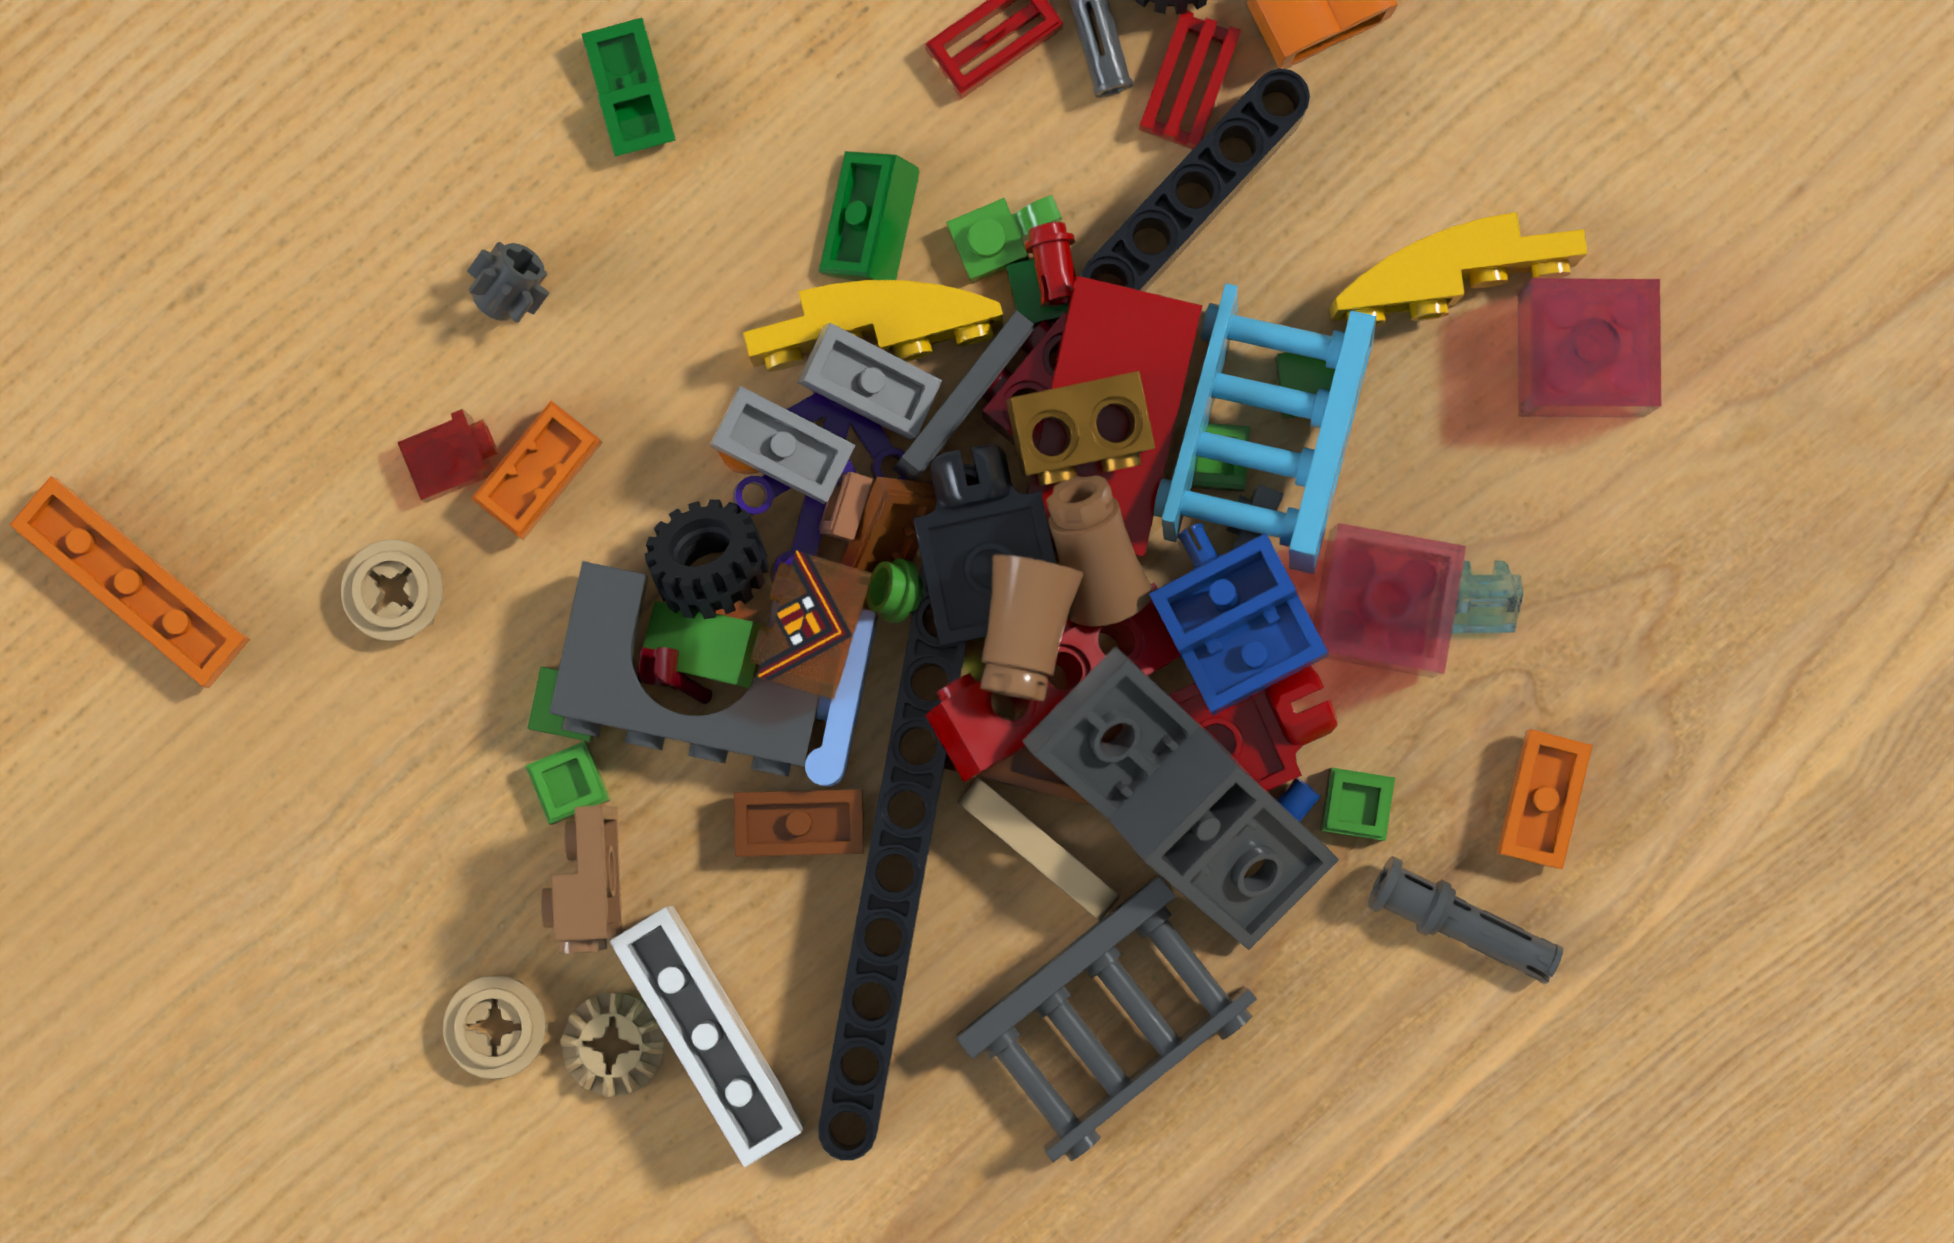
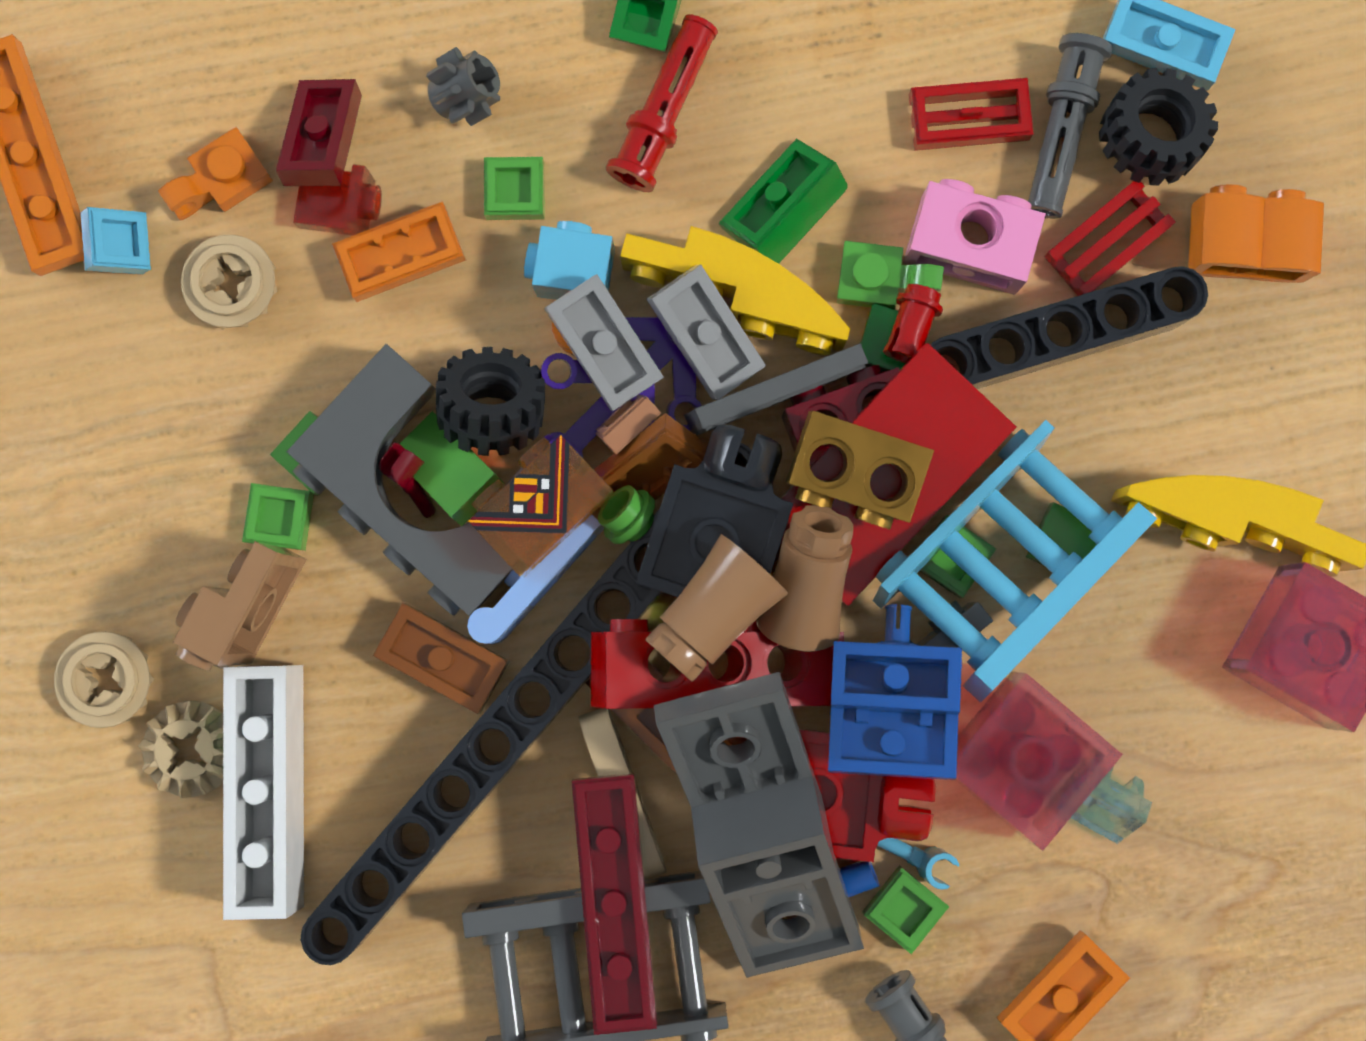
camera: 35 degrees right, 0 degrees up
(263, 613) = (115, 241): none -> medium azure tile
(326, 490) = (224, 172): none -> orange plate
(398, 402) = (319, 133): none -> dark red plate
(608, 349) = (514, 188): none -> bright green tile
(699, 221) = (657, 131): none -> red pin
(700, 387) = (568, 258): none -> medium azure brick
(1033, 173) = (1010, 227): none -> bright pink brick
(1089, 946) = (614, 904): none -> dark red tile
(1341, 750) = (920, 858): none -> medium azure hand

